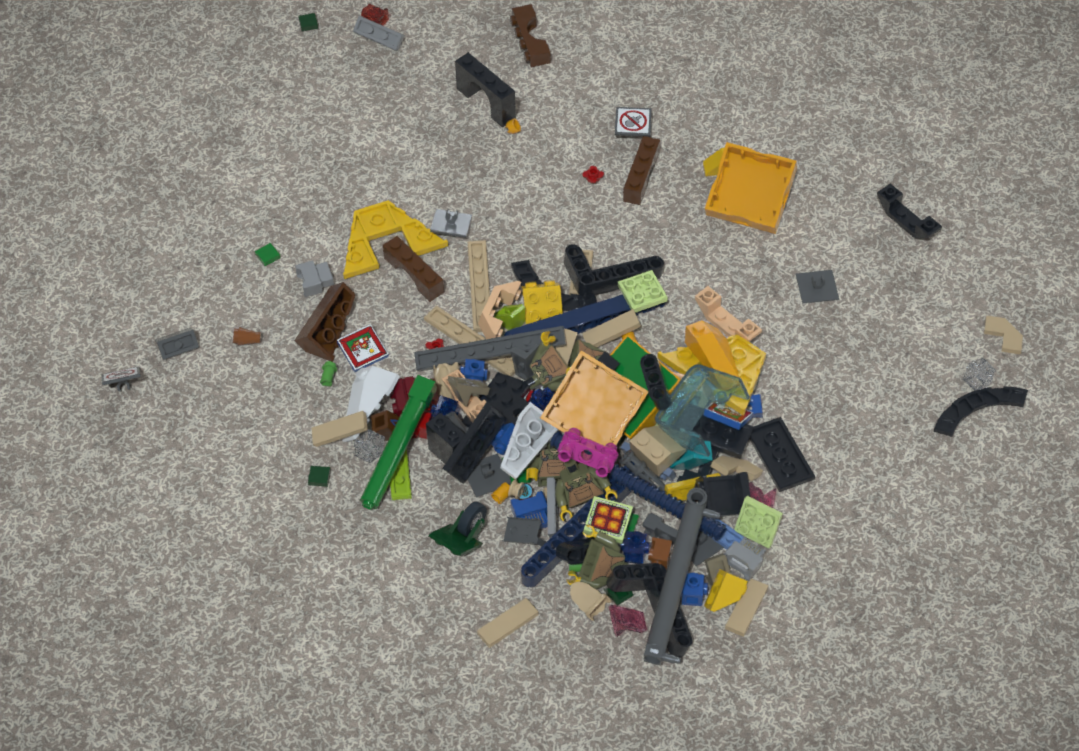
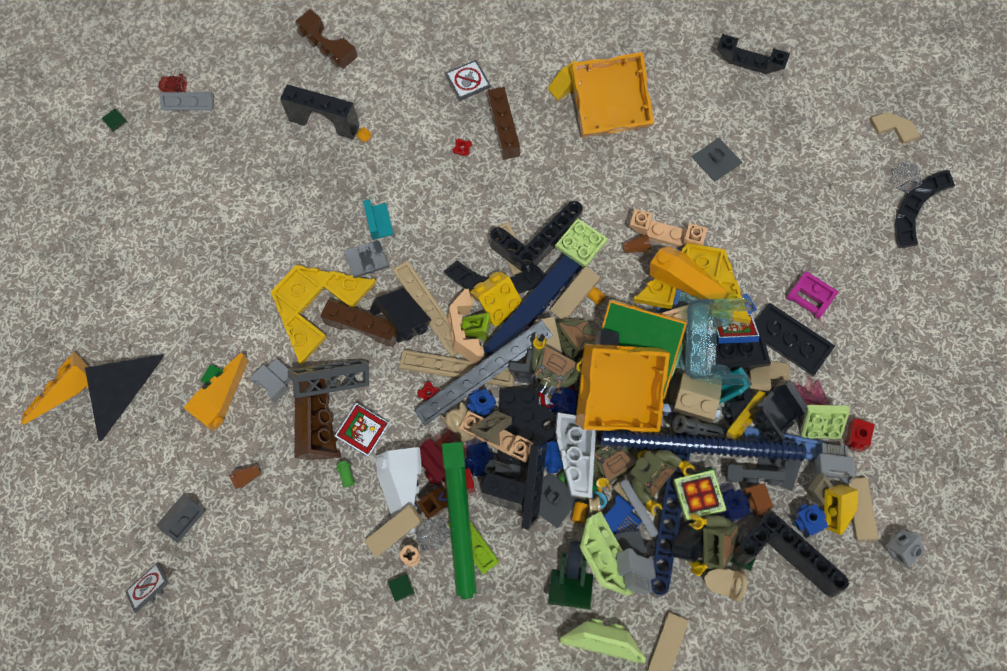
camera: 25 degrees left, 15 degrees up
(150, 202) = (67, 383): none -> light orange wedge
(183, 223) = (114, 387): none -> black tile
(256, 268) = (212, 404): none -> light orange wedge
(341, 455) = (415, 559): none -> light nougat bush
(352, 282) = (329, 370): none -> dark grey fence
(452, 275) = (402, 313): none -> black panel
(455, 587) = (604, 640): none -> yellowish green wedge
(480, 198) = (378, 220): none -> teal panel
(499, 525) = (600, 552): none -> yellowish green wedge
(516, 546) = (636, 571): none -> light grey piece
(573, 447) = (651, 444): dark pink piece -> none
(626, 619) = (774, 586): clear pink slope -> none
(654, 374) = (665, 329): black beam -> none
(675, 578) = (802, 528): dark grey piece -> none
(693, 317) = (638, 244): none -> dark orange cone
(761, 647) = (905, 547): none -> light grey brick
(784, 550) = (859, 435): none -> red brick
(829, 426) = (814, 289): none -> dark pink plate

